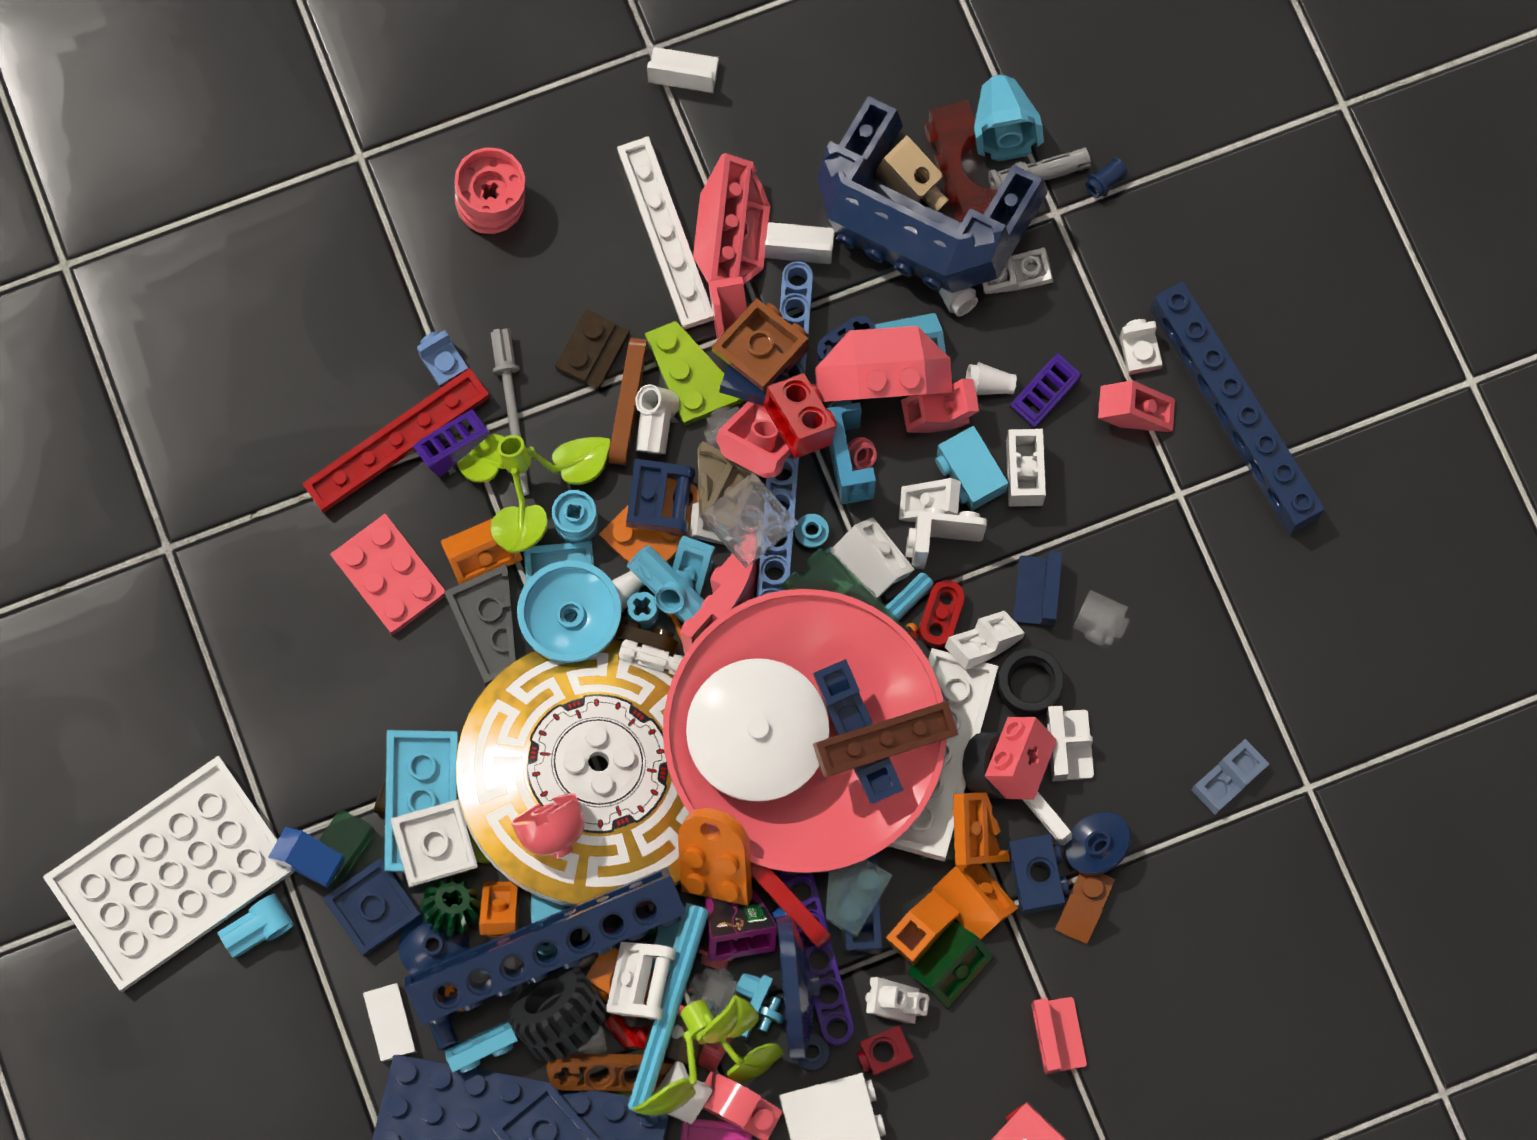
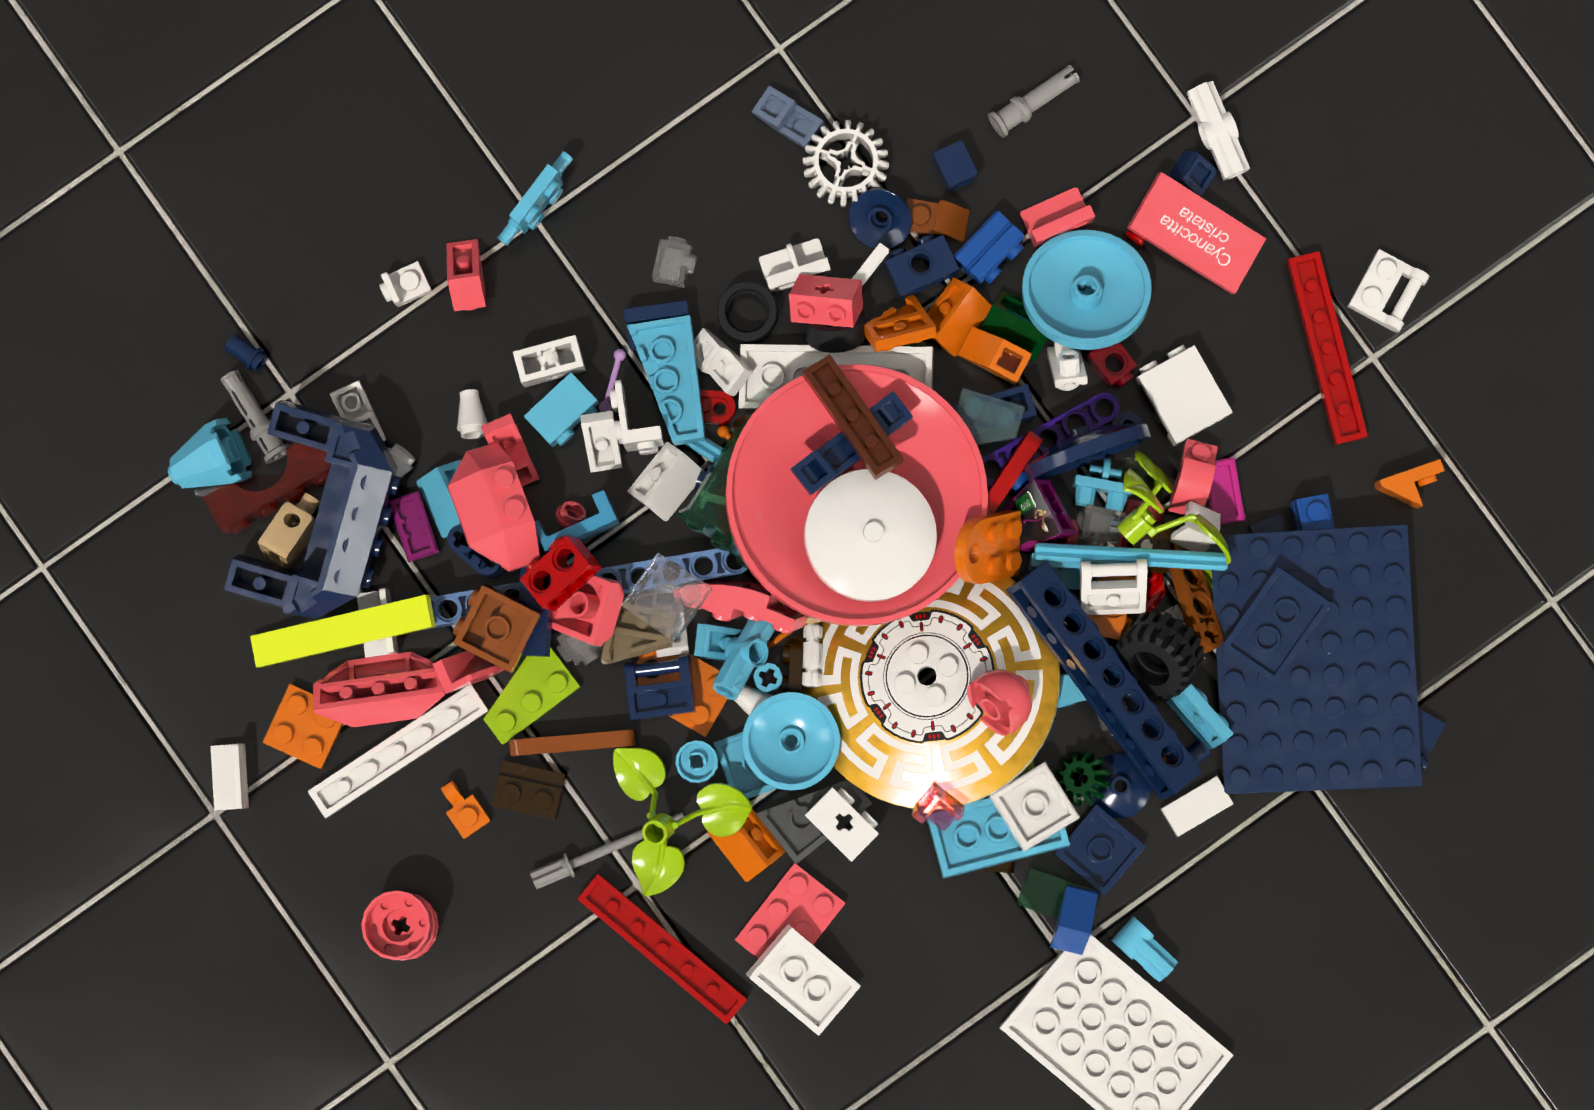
camera: 105 degrees left, 10 degrees up
(324, 568) = (803, 979): none -> white plate
(438, 439) = (654, 911): dark purple slope -> none
(441, 357) = (572, 928): medium blue bracket -> none
(459, 741) = (938, 807): none -> clear pink panel
(484, 630) = (850, 841): none -> white brick
(499, 908) = (1075, 734): orange slope -> none
(585, 284) = (466, 813): none -> orange plate
(655, 419) = (587, 712): white piece -> none
(706, 142) = (301, 731): none -> orange plate
(798, 203) = (343, 631): none -> neon yellow tile
(816, 540) = (649, 533): medium azure plate -> none
(889, 298) = (414, 526): none -> magenta plate
(969, 1042) = (1086, 289): none -> medium azure dish
(993, 589) = (672, 370): none -> medium azure wing
(1016, 543) = (619, 356): none -> lavender hinge
(1039, 951) = (989, 249): none -> blue brick
(1066, 370) = (444, 347): dark purple slope -> none
(1137, 936) = (954, 166): none -> dark blue panel
(1154, 812) = (856, 137): none -> white gear
(1185, 1025) = (1021, 108): none -> light grey pin
(1199, 493) = (542, 192): none -> medium azure plate
(1236, 408) = (444, 184): dark blue brick -> none

